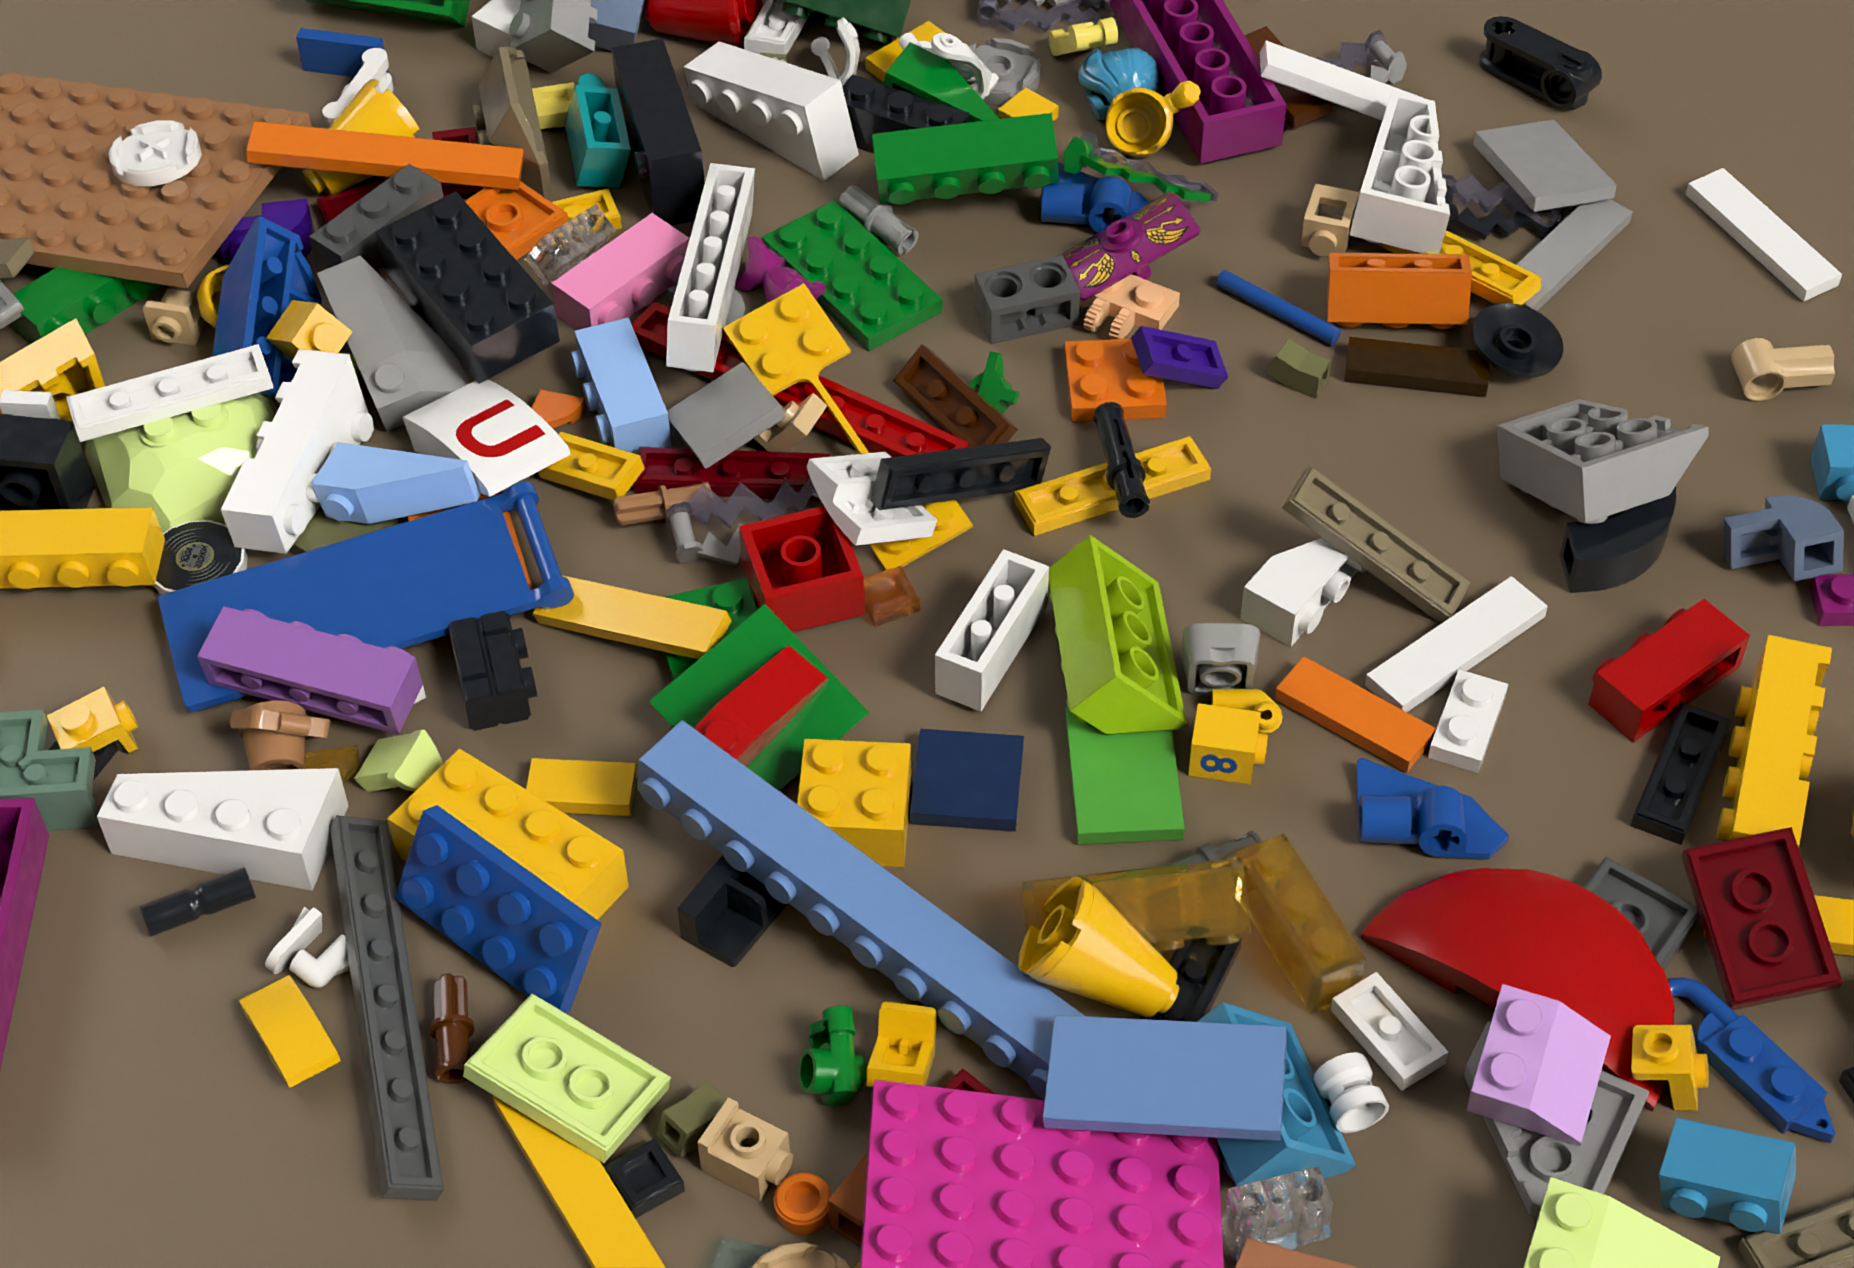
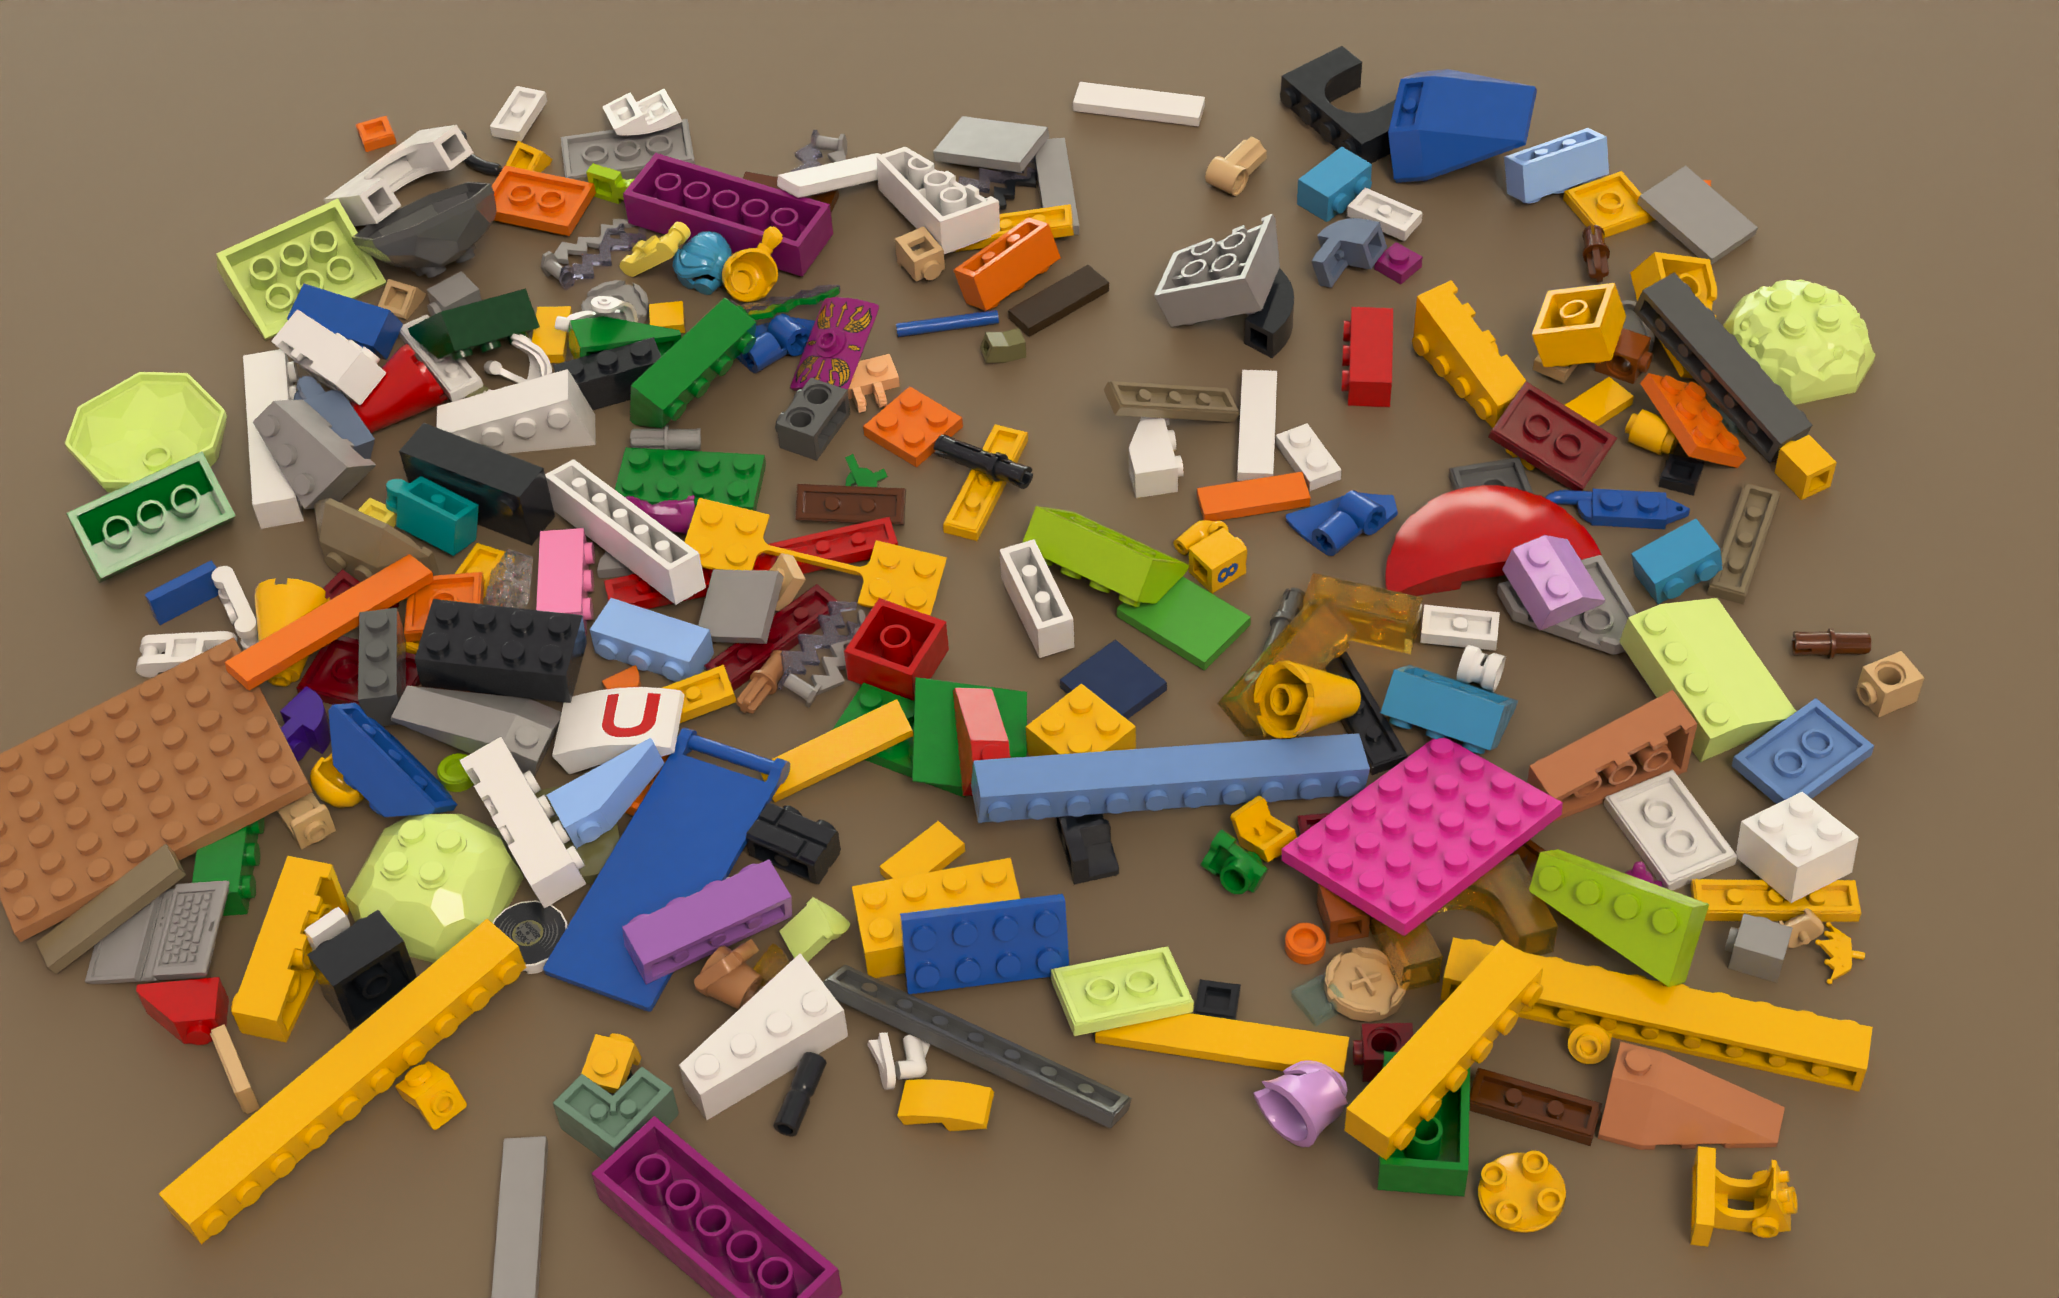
camera: 45 degrees left, 0 degrees up
(155, 153) = (175, 733): white tile -> none
(169, 393) = (415, 847): white tile -> none
(274, 91) = (177, 649): none -> white plate
(308, 328) = (440, 750): yellow brick -> none
(451, 1028) = (1027, 1026): reddish brown axle -> none
(688, 1119) = (1207, 953): olive piece -> none
(750, 1167) = (1252, 943): tan brick -> none
(846, 492) = (886, 582): white slope -> none
(890, 596) = (957, 629): clear orange tile -> none
(959, 473) = (919, 531): black tile -> none
(1166, 1077) = (1414, 724): medium blue tile -> none
(1179, 357) = (941, 386): dark purple plate -> none
(1219, 656) = (1167, 519): light grey piece -> none
(1278, 1211) = (1522, 742): clear piece -> none
(1517, 340) = (1096, 247): black dish -> none
(1539, 63) = (917, 89): black piece -> none
(1670, 1055) = (1596, 531): yellow bracket -> none
(1680, 773) = (1430, 403): black tile -> none

